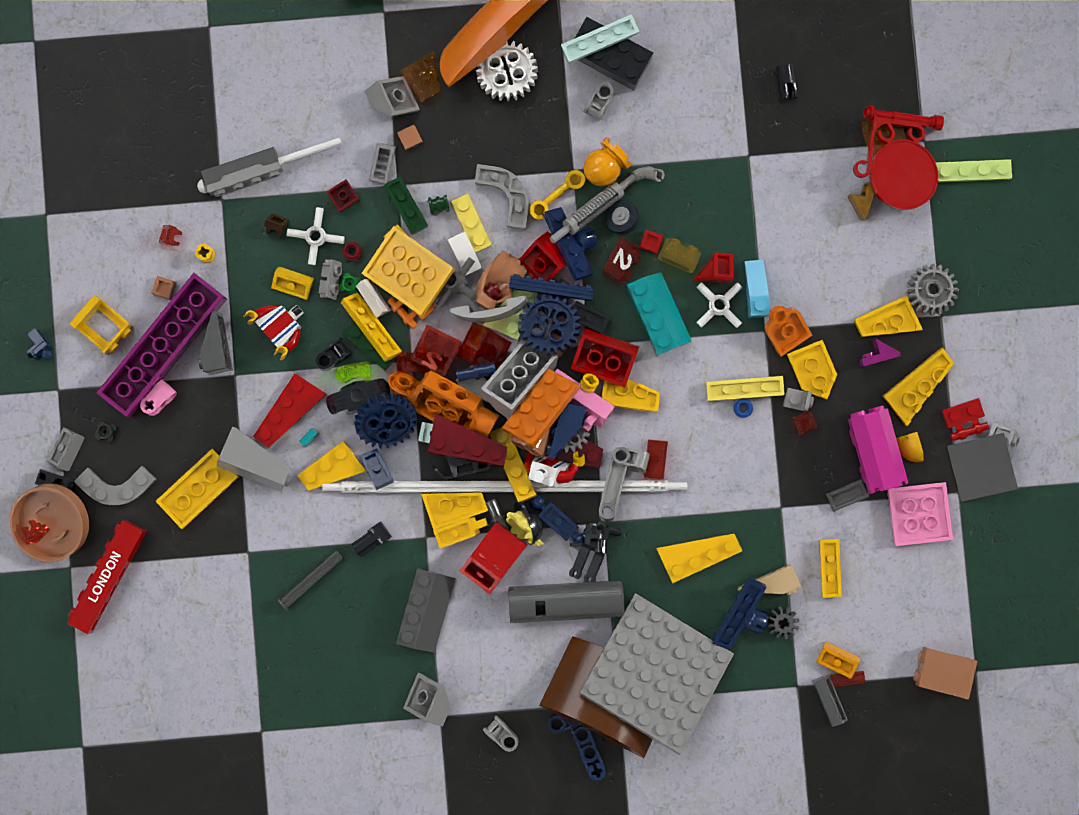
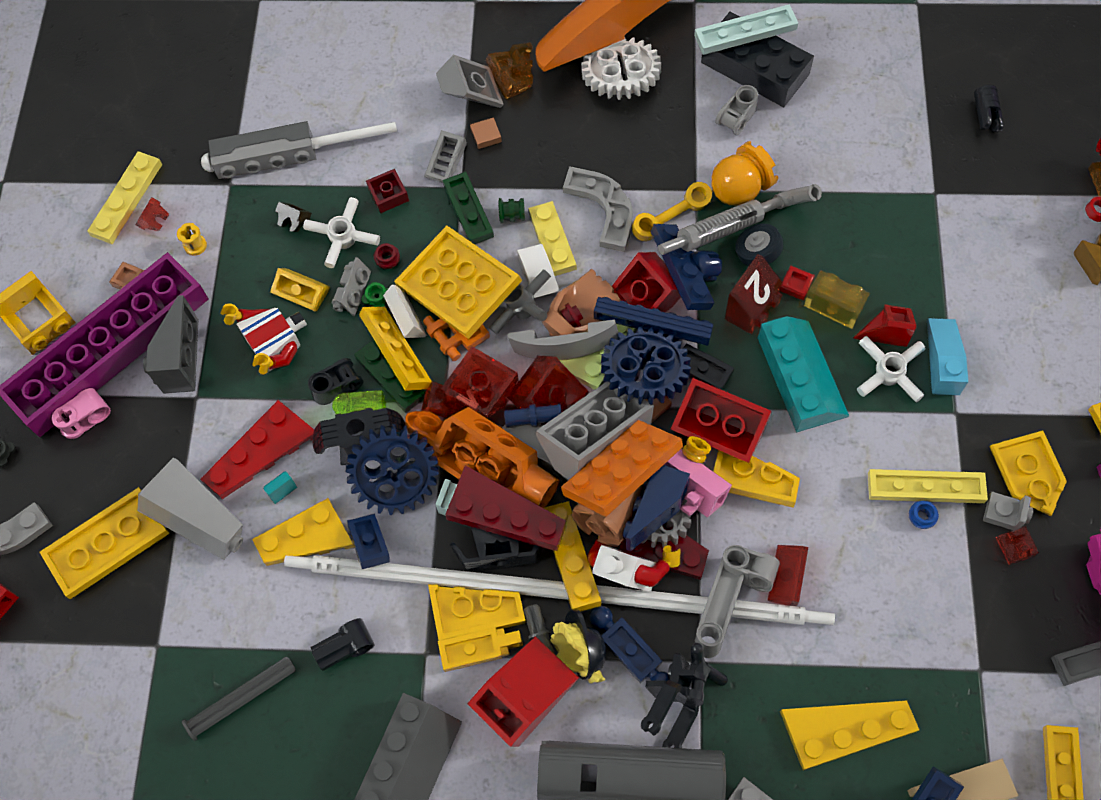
camera: 10 degrees right, 20 degrees down
(144, 220) = (124, 197): none -> light yellow plate
(786, 329) = (991, 407): orange plate -> none

